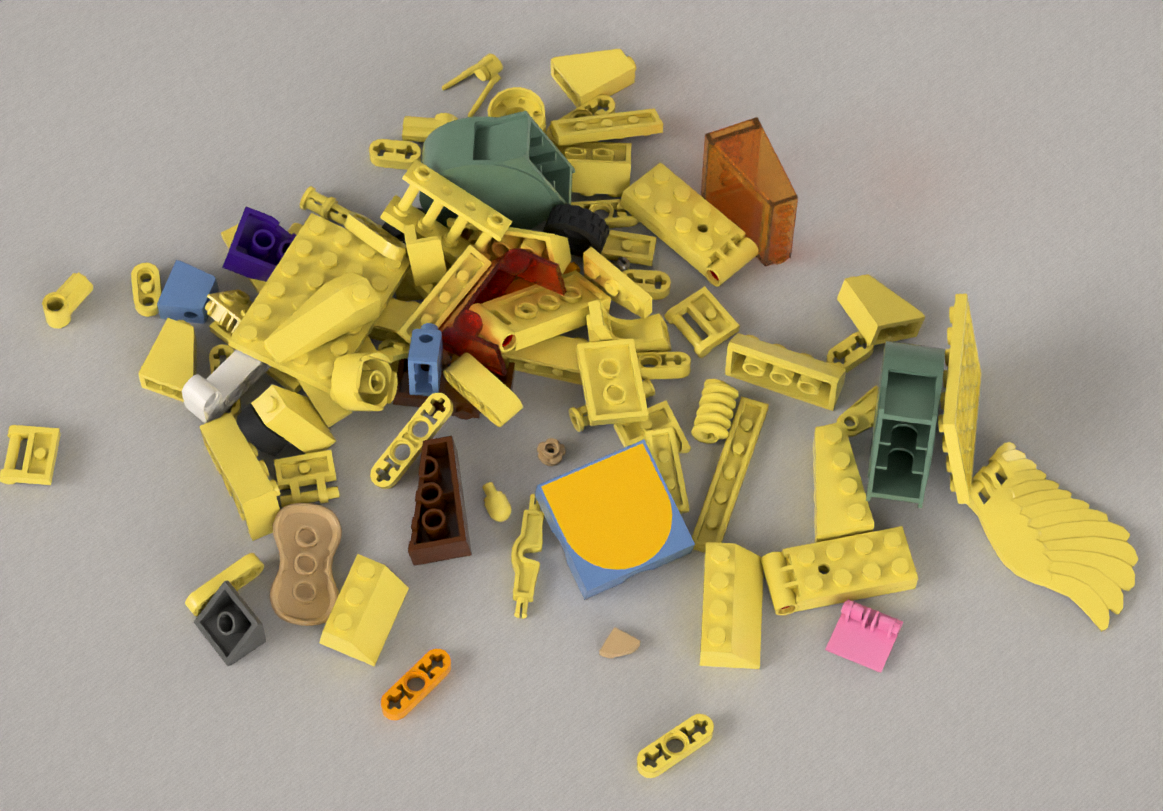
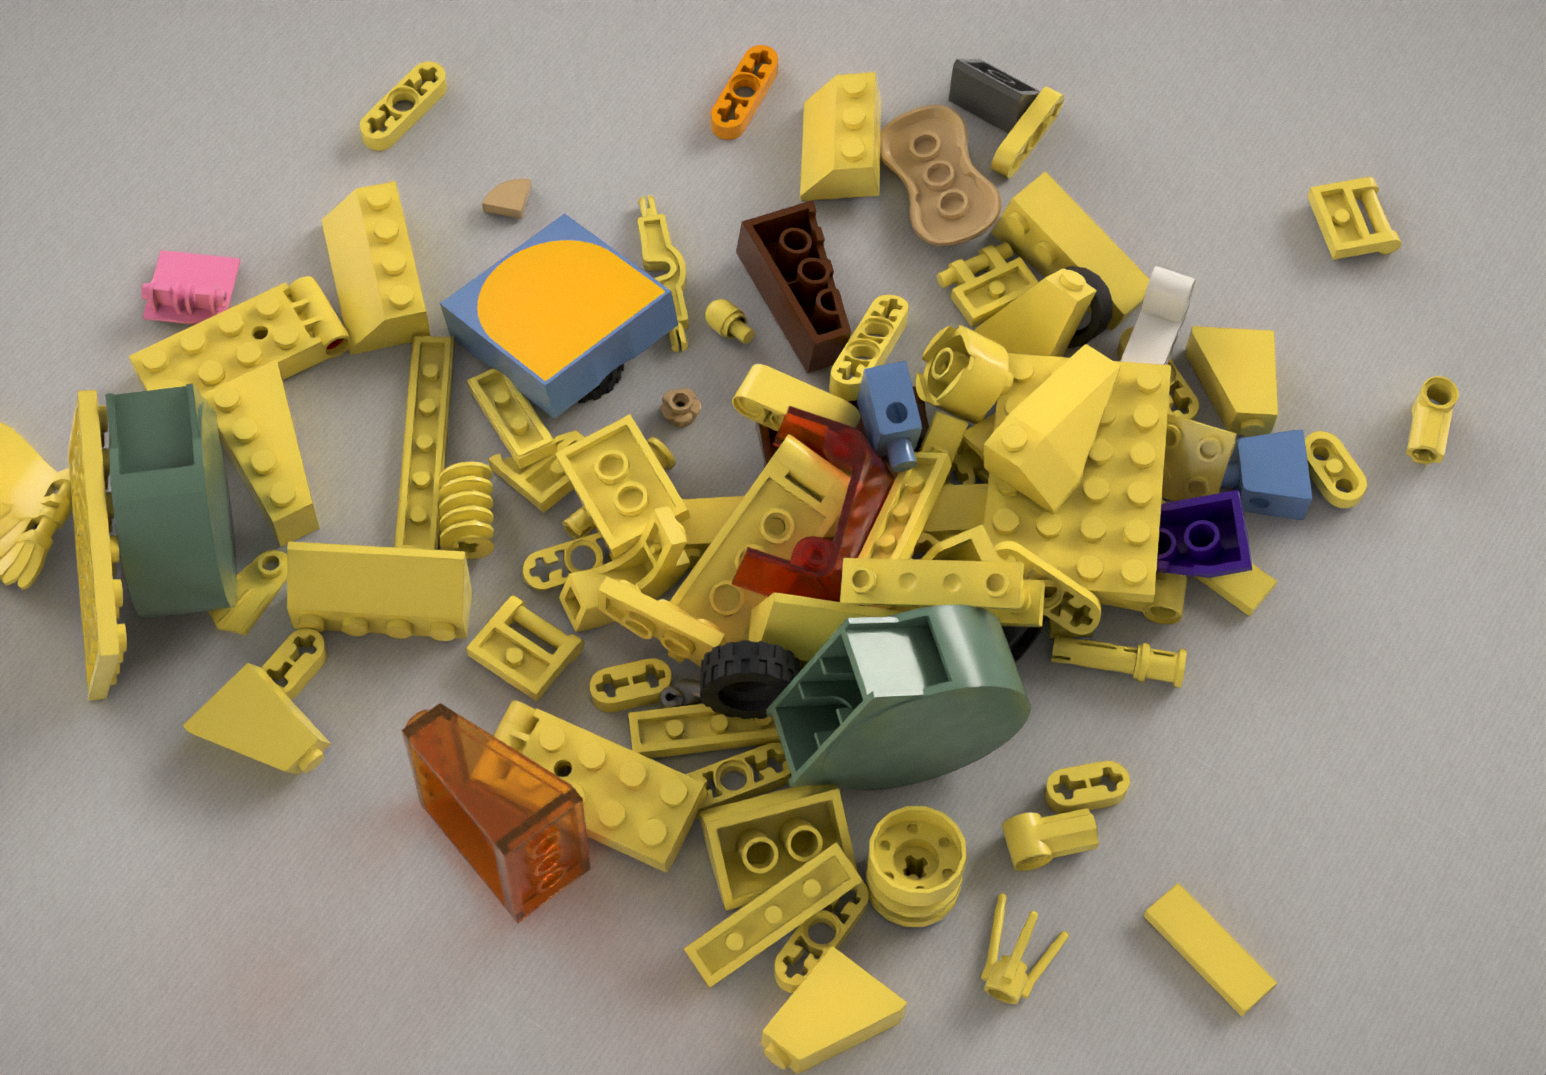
camera: 160 degrees right, 0 degrees up
(367, 56) = (1210, 949): none -> light yellow tile

